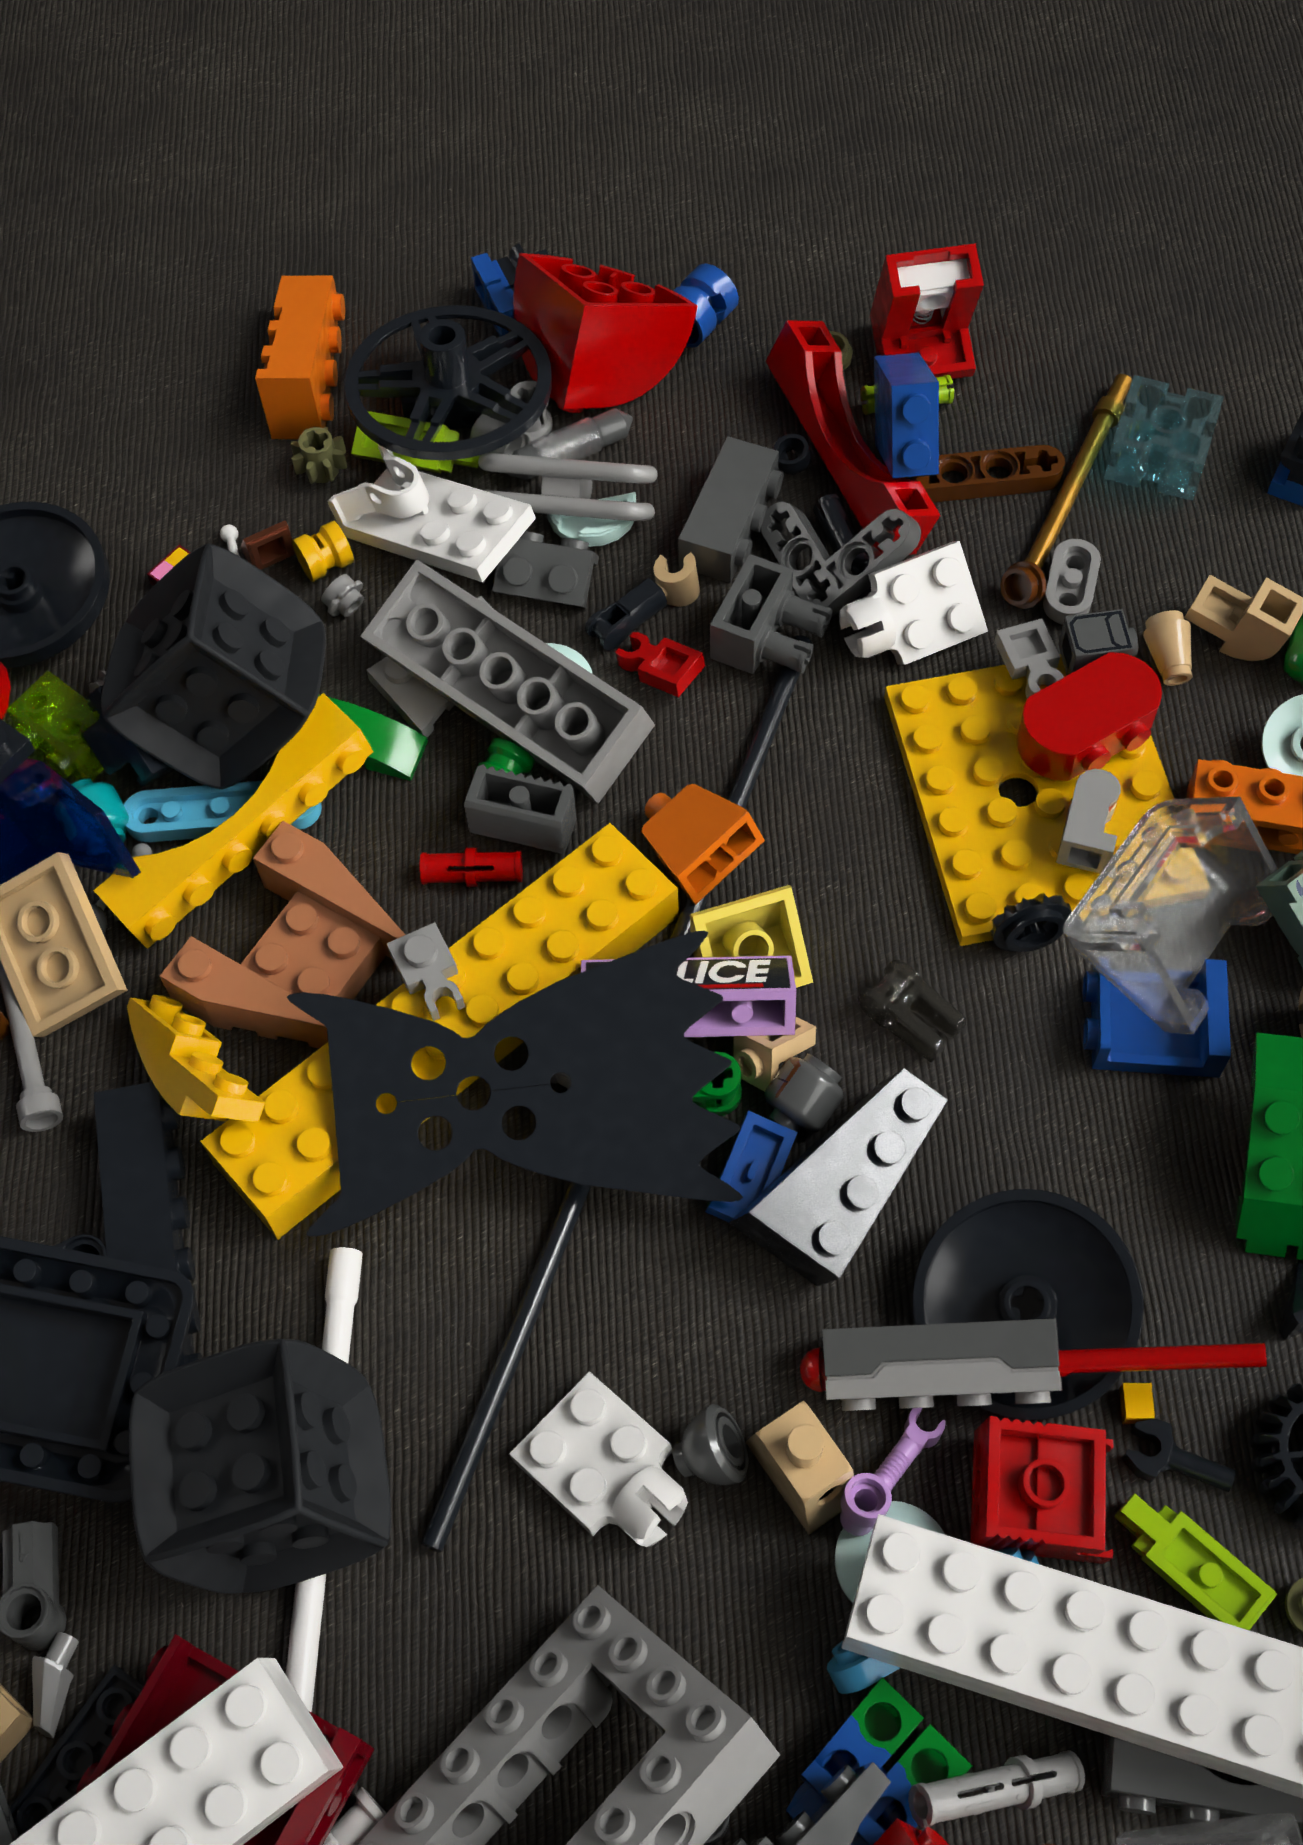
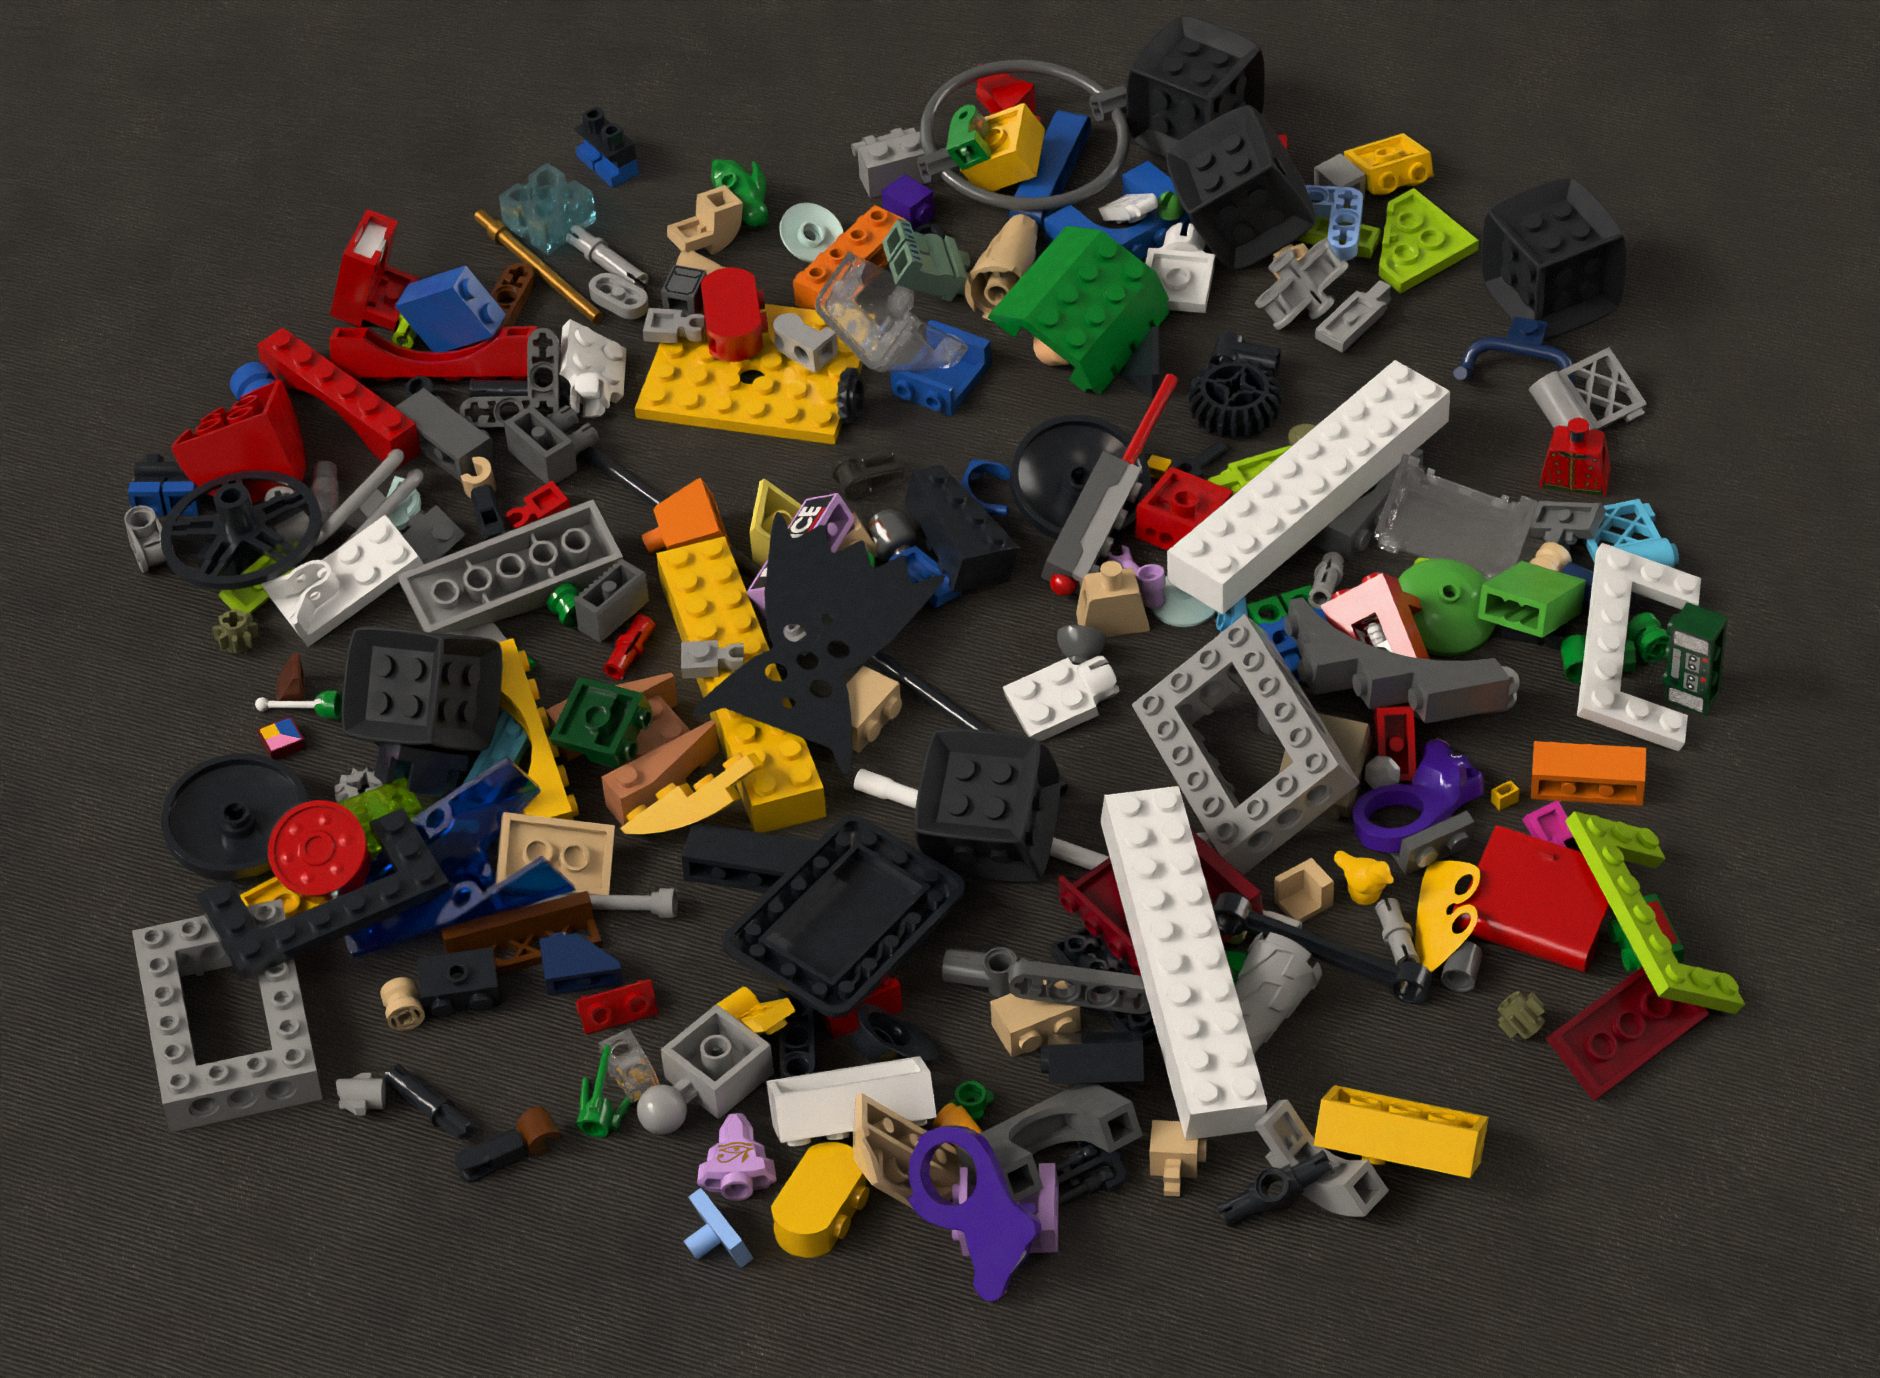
camera: 65 degrees left, 15 degrees down
(263, 895) = (602, 722): none -> dark green plate
(301, 355) = (140, 612): orange wedge -> none
(323, 551) = (323, 651): yellow wheel -> none
(432, 290) = (144, 536): none -> light grey piece
(471, 1203) = (872, 704): none -> tan brick
(720, 395) = (369, 415): none -> red arch
(930, 1150) = (976, 470): none -> blue helmet
(1023, 585) = (606, 317): reddish brown plate -> none
(1134, 526) = (597, 251): none -> light grey pin

